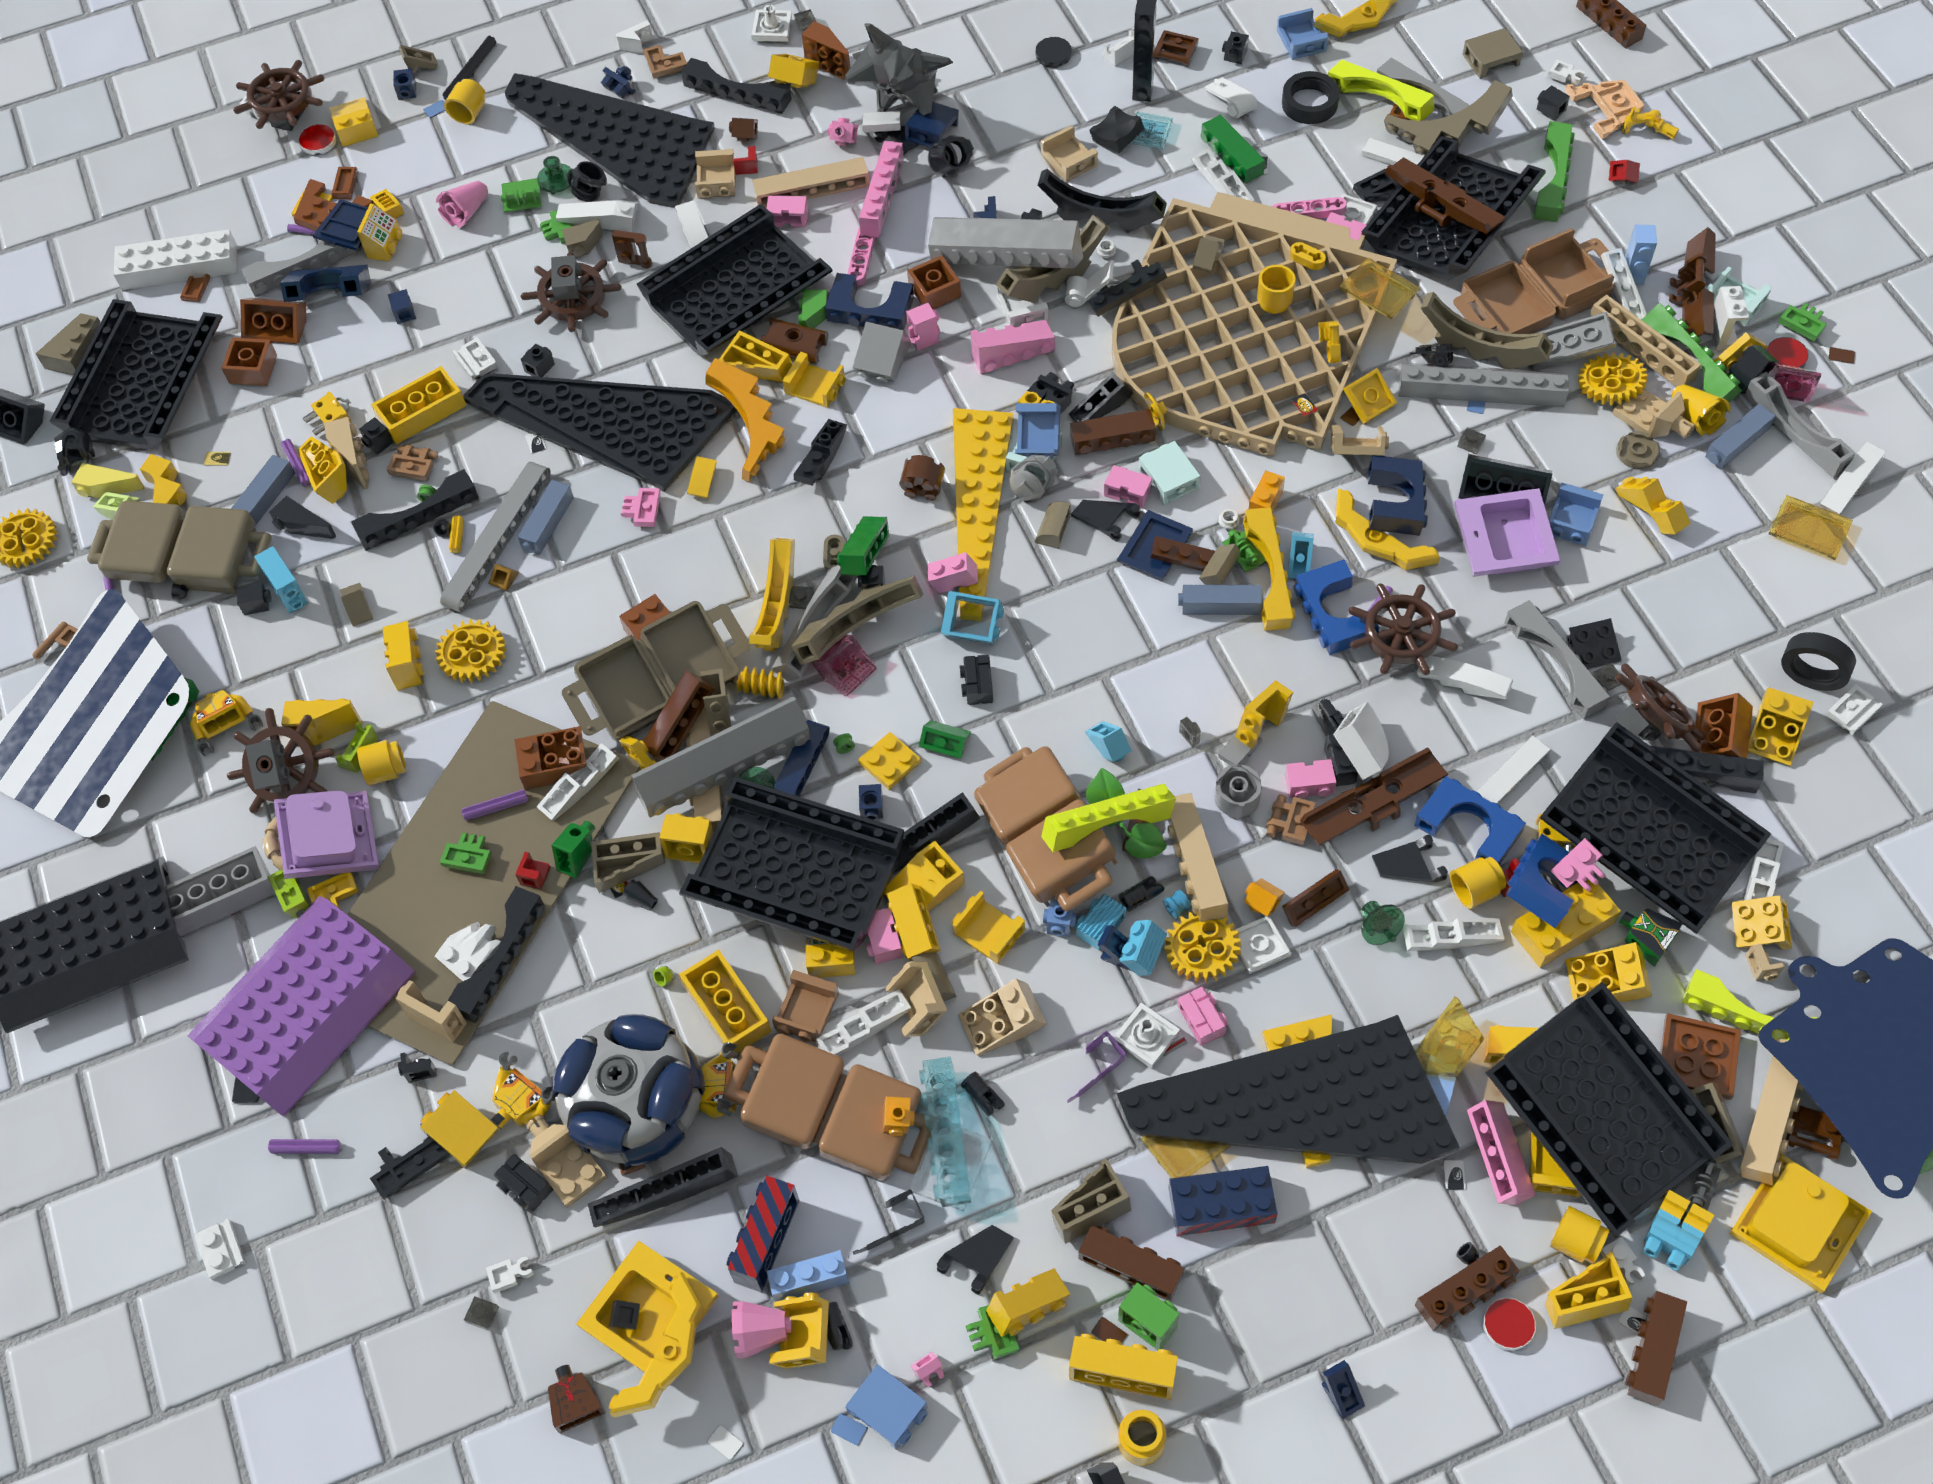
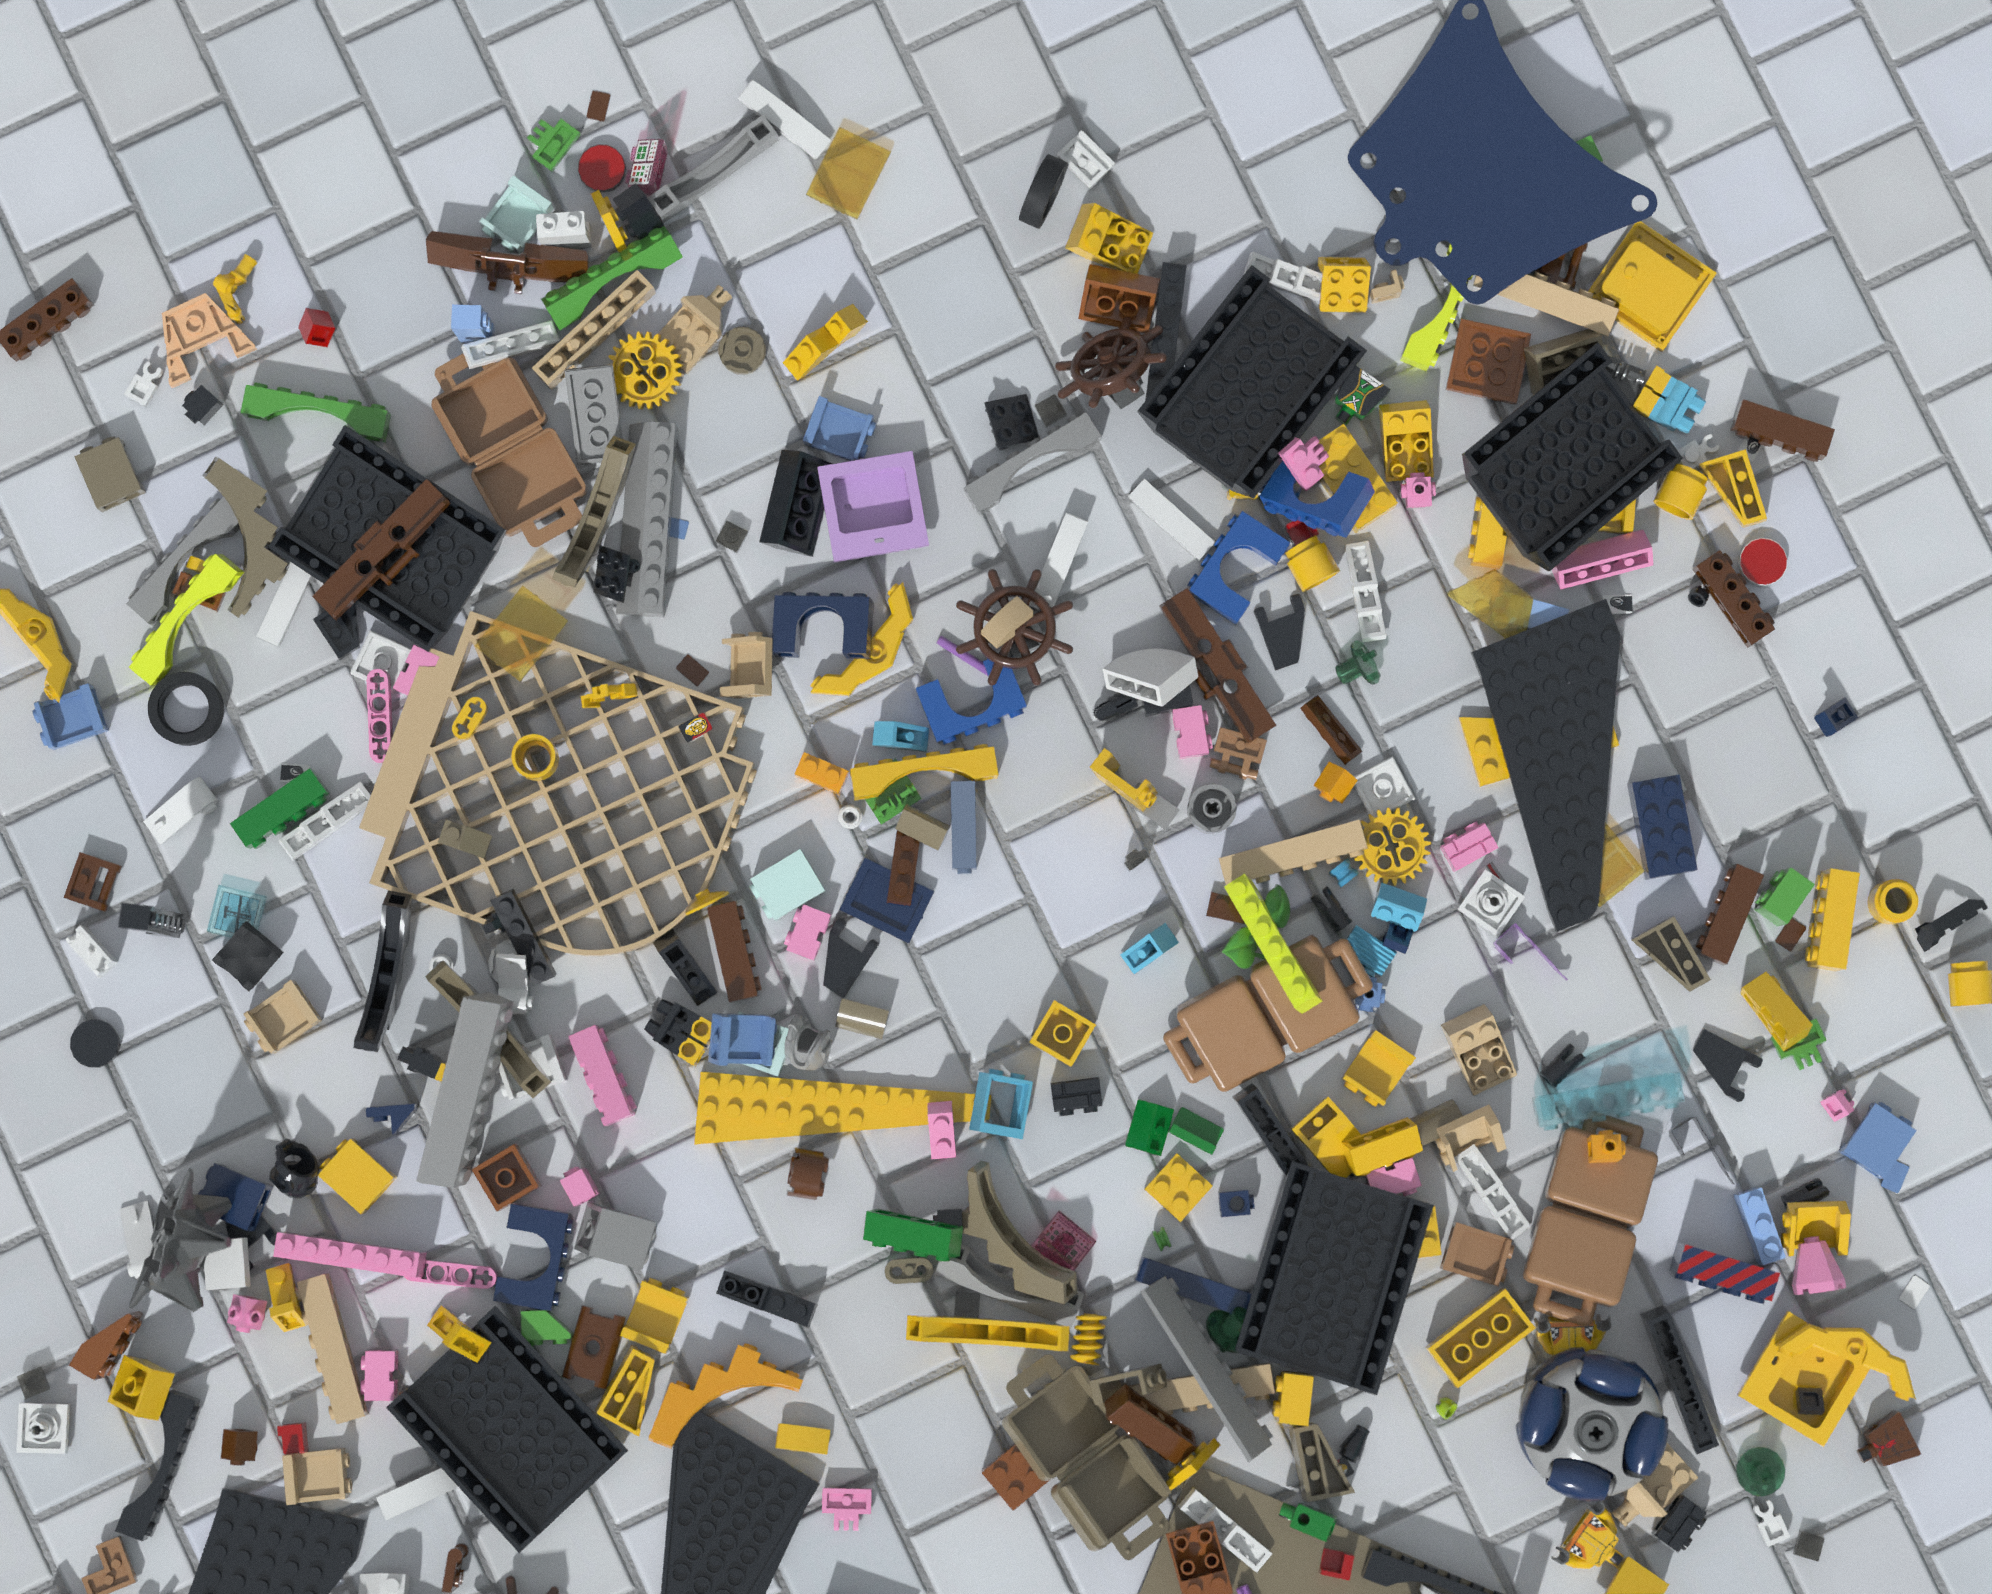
camera: 95 degrees left, 25 degrees up
(561, 1267) = (1760, 1471): none -> clear green piece
(809, 248) = (458, 1335): none -> yellow bracket
(842, 150) = (285, 1304): none -> yellow bracket
(938, 774) = (1196, 1130): none -> green panel
(941, 194) = (356, 1175): none -> yellow panel
(1032, 666) = (1062, 1033): none -> yellow brick
(1235, 47) = (96, 804): black brick -> none
(1370, 395) = (674, 650): yellow tile -> none
(1412, 614) = (1006, 621): none -> tan slope
(1558, 981) = (1416, 500): none -> bright pink brick
(1703, 409) = (688, 277): yellow cone -> none
(1740, 436) = (726, 235): sand blue brick -> none

